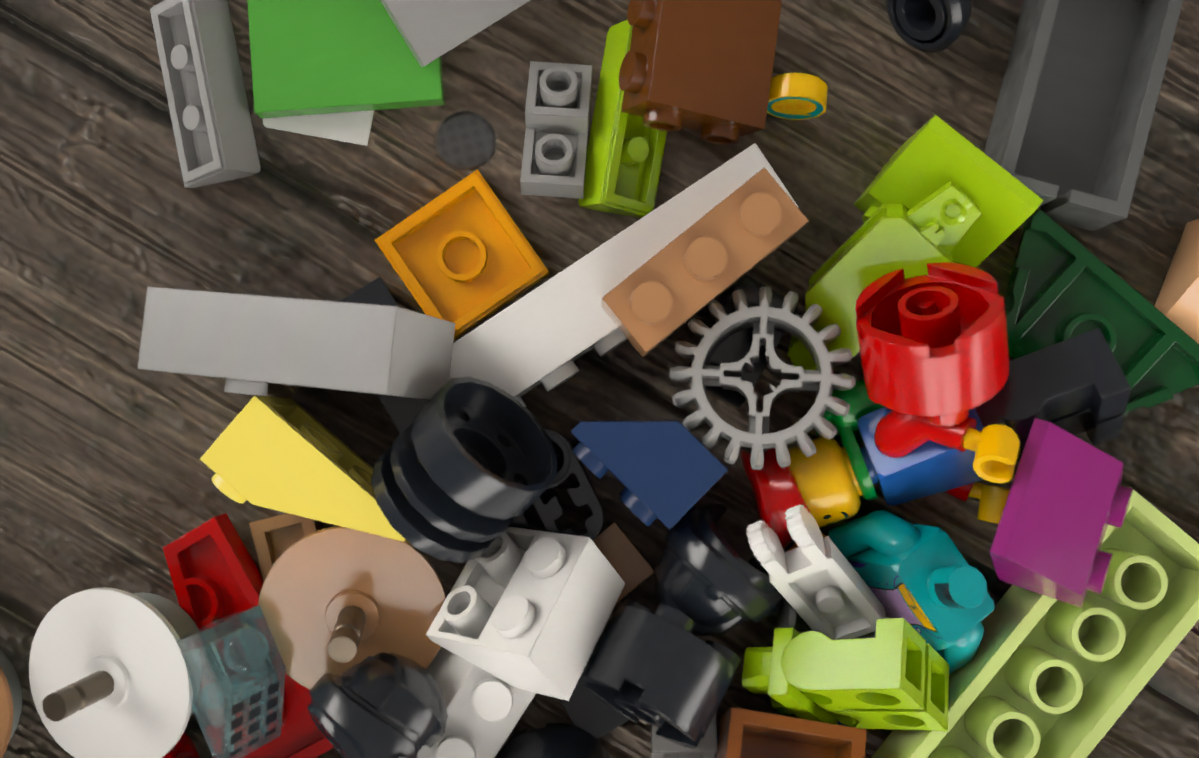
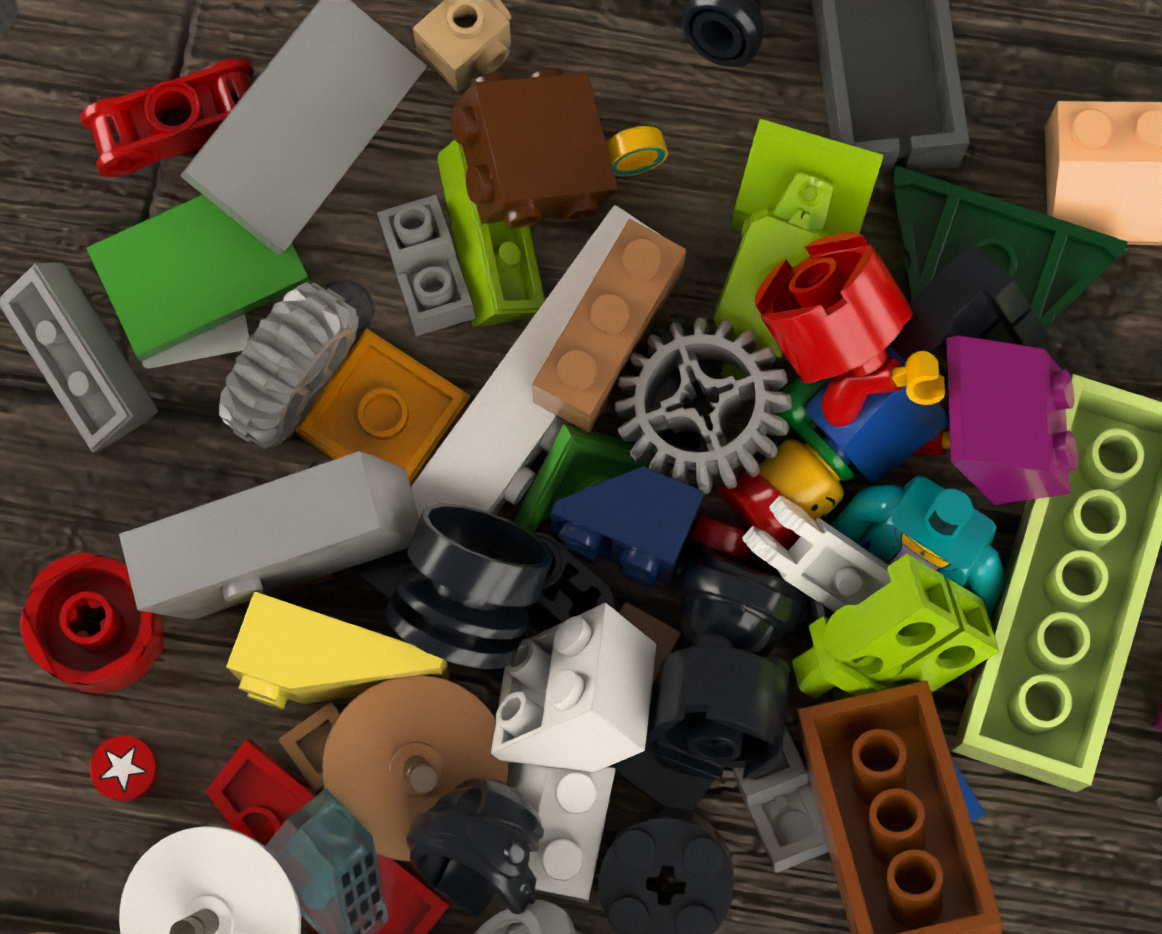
camera: 20 degrees left, 10 degrees down
(75, 359) = (57, 621): none -> red brick
(103, 493) = (124, 769): none -> red tile
(382, 176) = (287, 364): none -> light grey gear
(617, 385) = (572, 465): none -> bright green tile
(732, 502) = (720, 535): none -> red tile

